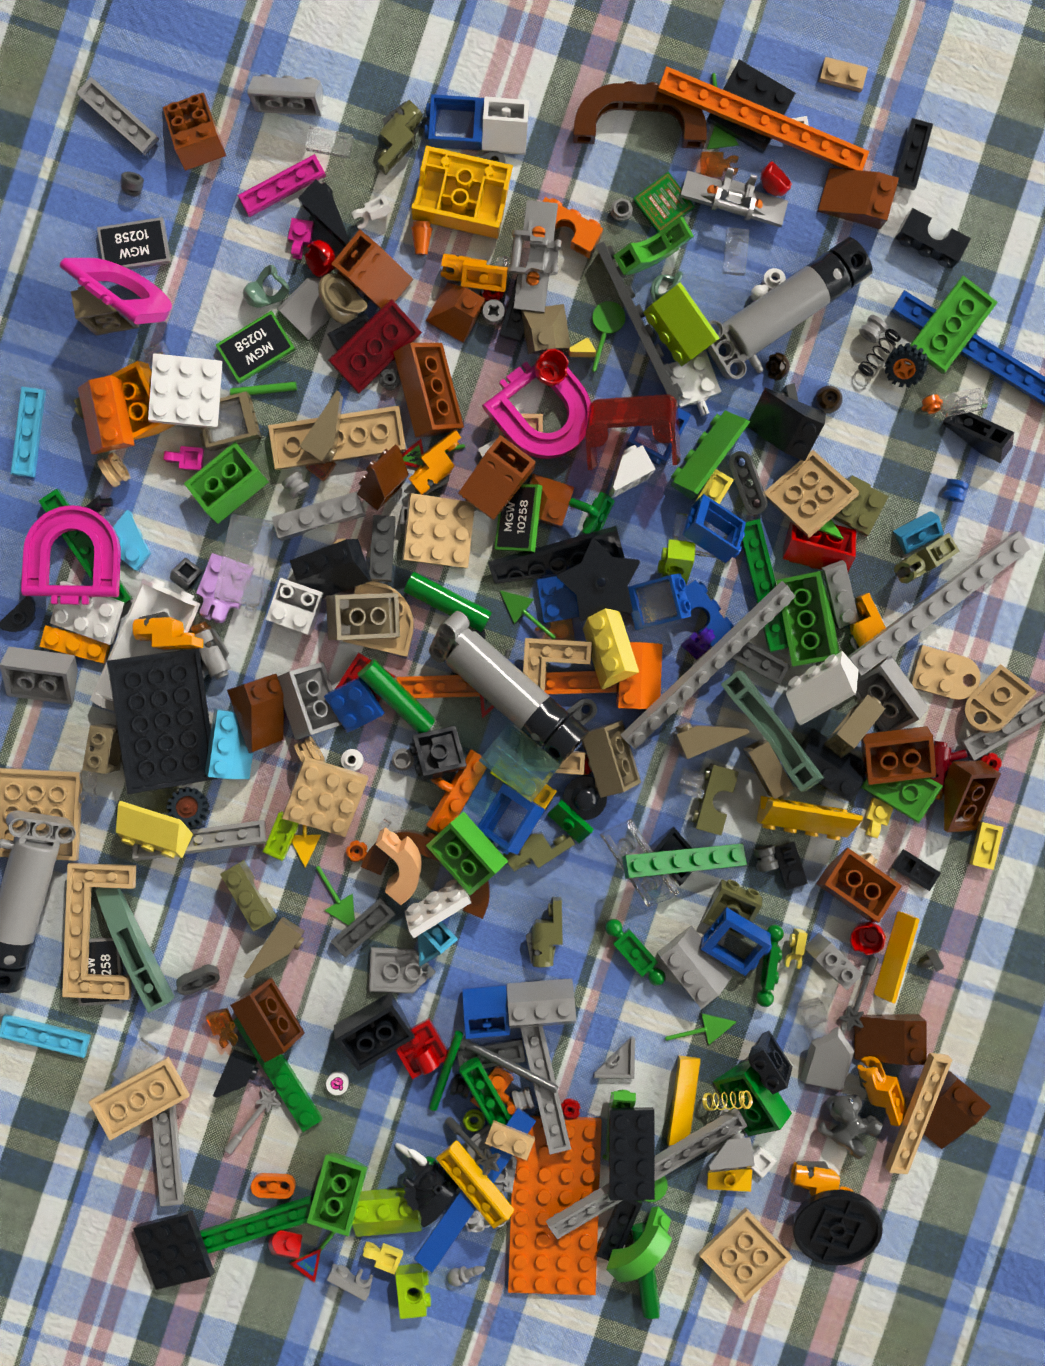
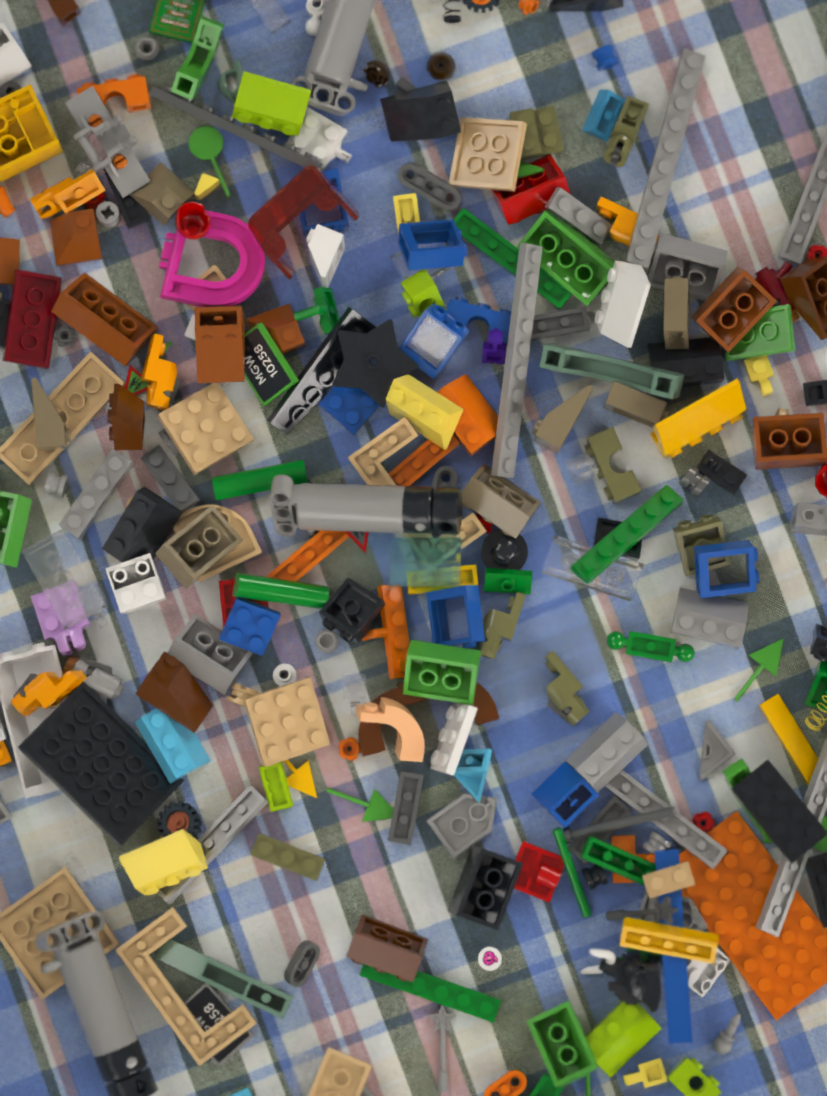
camera: 40 degrees left, 5 degrees down
(102, 749) = (73, 827): dark tan window -> none
(185, 574) = (21, 632): black slope -> none
(222, 1025) = (352, 985): clear orange plate -> none
(237, 1073) = (397, 1017): black slope -> none
(278, 945) = (346, 878): dark tan slope -> none
(321, 470) = (67, 456): tile -> none
(474, 1127) = (637, 897): lime plate -> none
(517, 606) = (320, 438): bright green piece -> none
(561, 629) = (370, 429): clear orange plate -> none
(709, 453) = (378, 188): bright green slope -> none
(769, 973) = (777, 575): green plate -> none
(797, 942) = (778, 530): light yellow plate -> none
(943, 673) = (717, 213): tan plate -> none
(999, 699) = (779, 198): tan plate -> none

